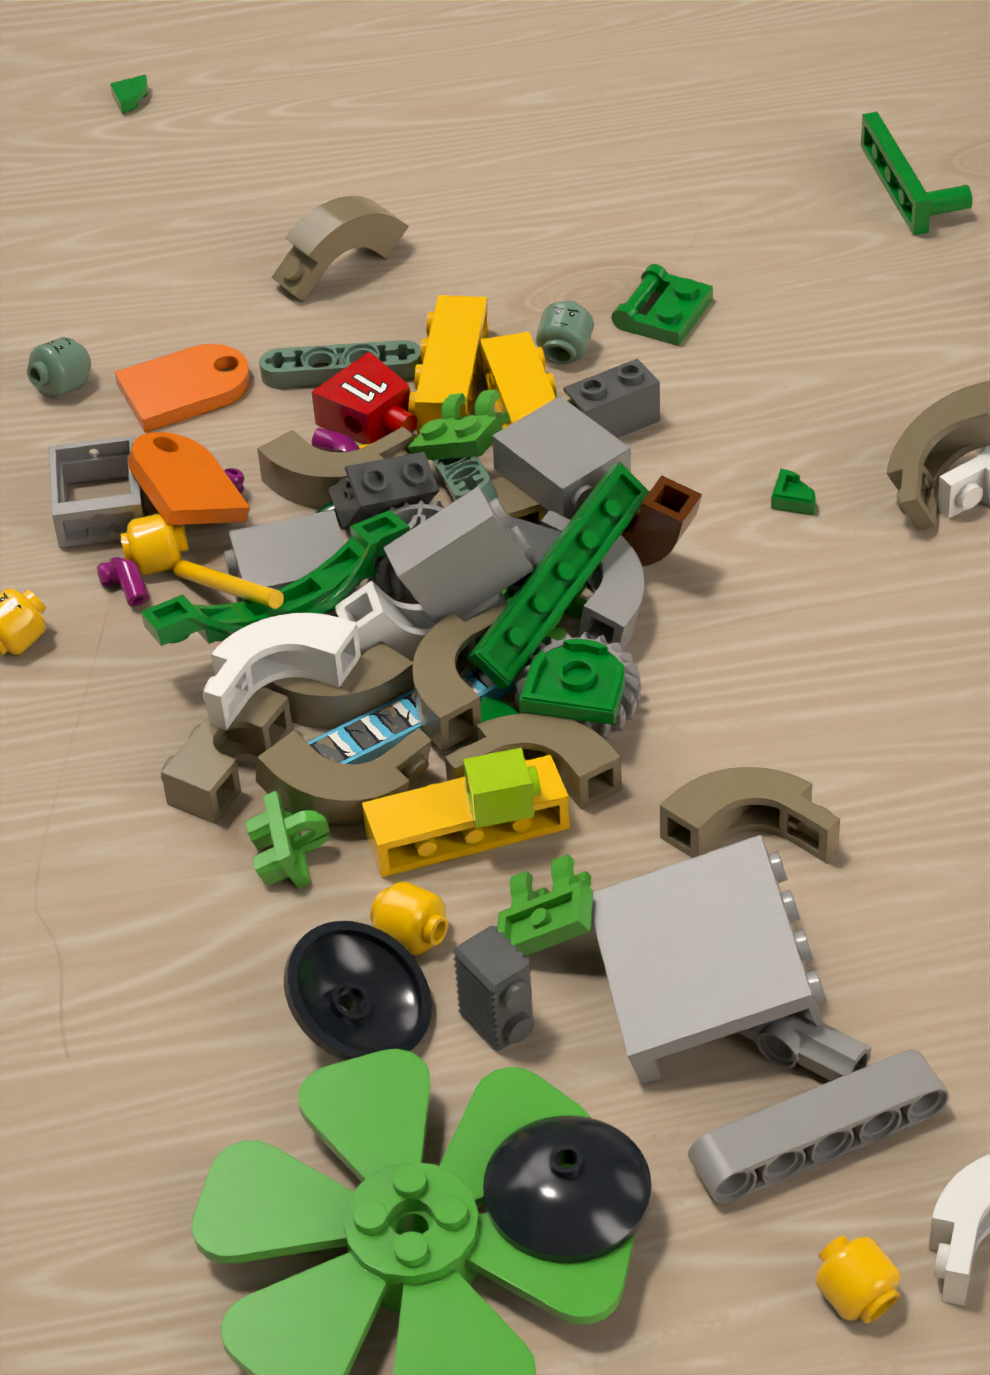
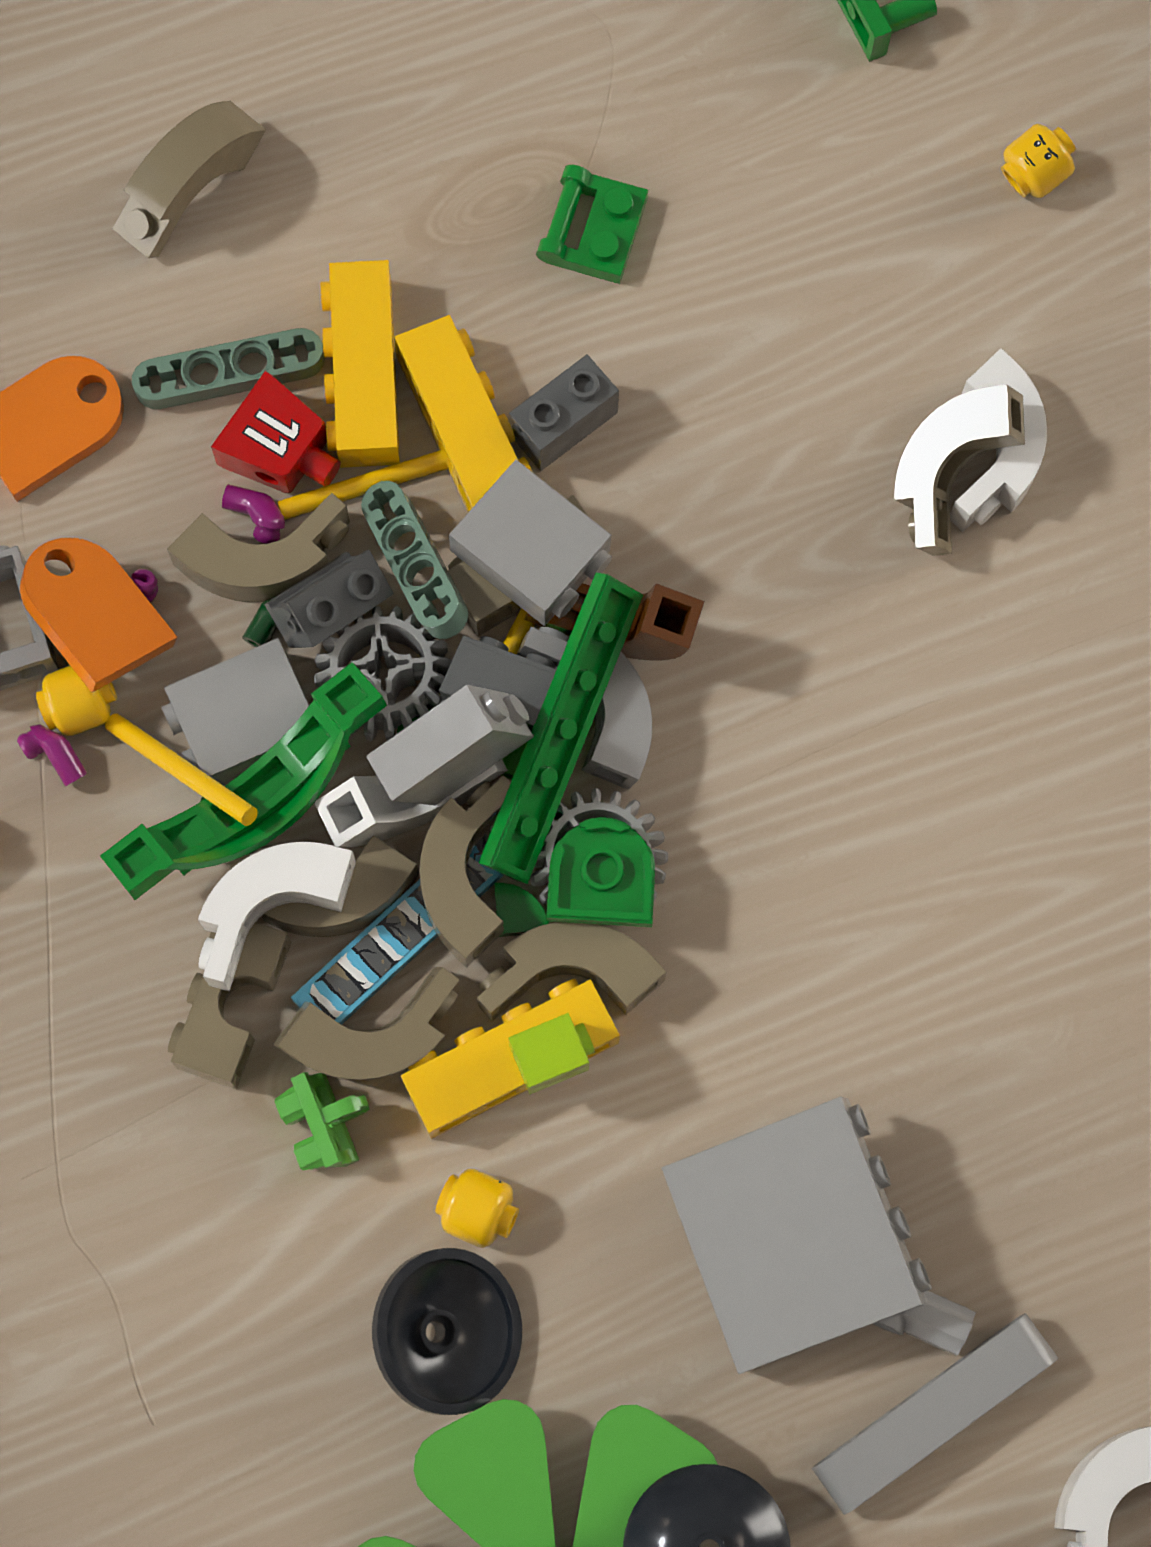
camera: 15 degrees left, 30 degrees up
(461, 435) = (400, 510): bright green plate -> none
(494, 988) = (590, 1310): dark grey brick -> none
(545, 917) = (622, 1202): bright green plate -> none
(564, 332) = (487, 294): sand green head -> none
(743, 801) = (807, 996): dark tan arch -> none
(792, 494) = (787, 519): green tile -> none

